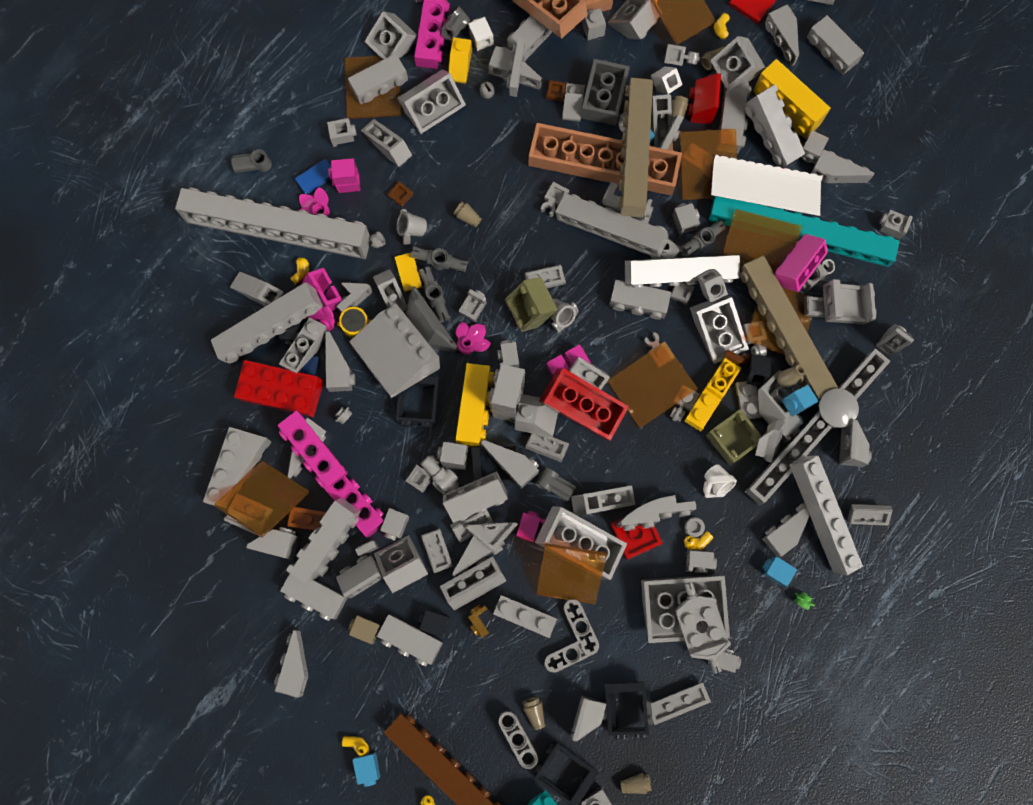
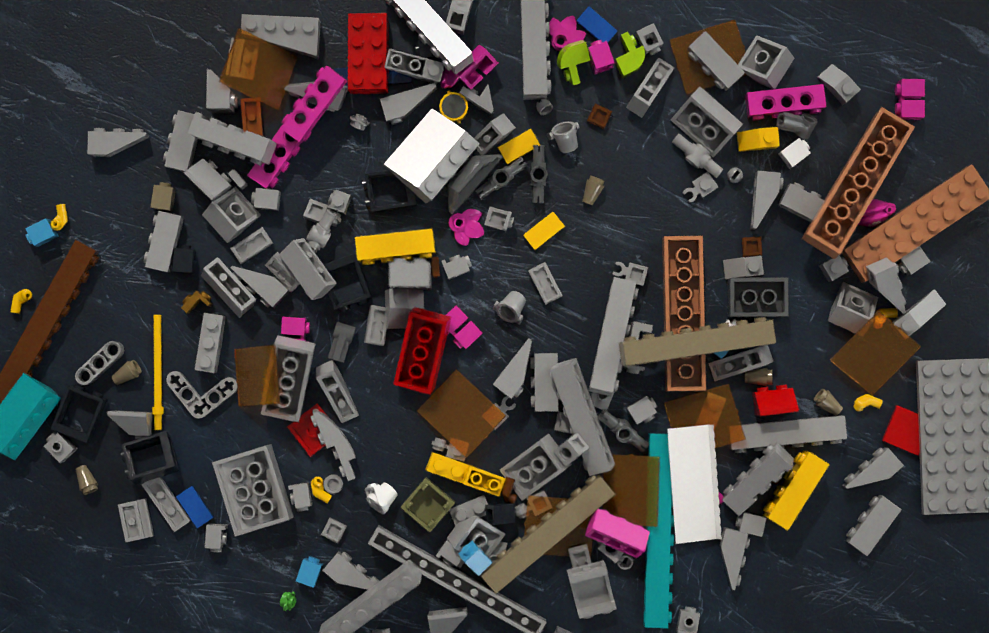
camera: 75 degrees right, 10 degrees up
(302, 270) = (494, 41): yellow arm -> none
(338, 204) = (569, 57): none -> lime brick
(351, 149) = (633, 59): none -> lime brick
(416, 452) = (339, 201): none -> light grey brick
(453, 455) = (342, 238): light grey brick -> none
(460, 116) = (697, 155): none -> light grey pin
(490, 119) = (702, 186): none -> light grey plate
(492, 534) = (277, 293): light grey tile -> none
(494, 268) = (543, 230): none -> yellow tile
(513, 463) = (346, 299): light grey slope -> none
(516, 66) = (758, 199): light grey plate -> none
(531, 304) = (510, 275): olive container -> none
(579, 688) = (157, 410): none -> yellow bar
(589, 373) = (454, 349): light grey slope -> none
(623, 321) = (513, 375): none -> light grey slope
(666, 80) = (787, 357): white brick -> none
(672, 133) = (727, 376): light grey plate -> none
(675, 55) = (821, 361): light grey plate -> none
(688, 674) = (194, 506): none -> blue tile
(689, 740) = (135, 520): none -> light grey plate
(714, 639) = (221, 512): light grey plate -> none
(738, 63) = (818, 426): light grey slope -> none
(741, 537) = (334, 530): none -> light grey tile
(769, 443) = (428, 539): light grey slope -> none
(790, 376) = (497, 544): dark tan cone -> none
(838, 408) = (476, 596): light grey dish -> none

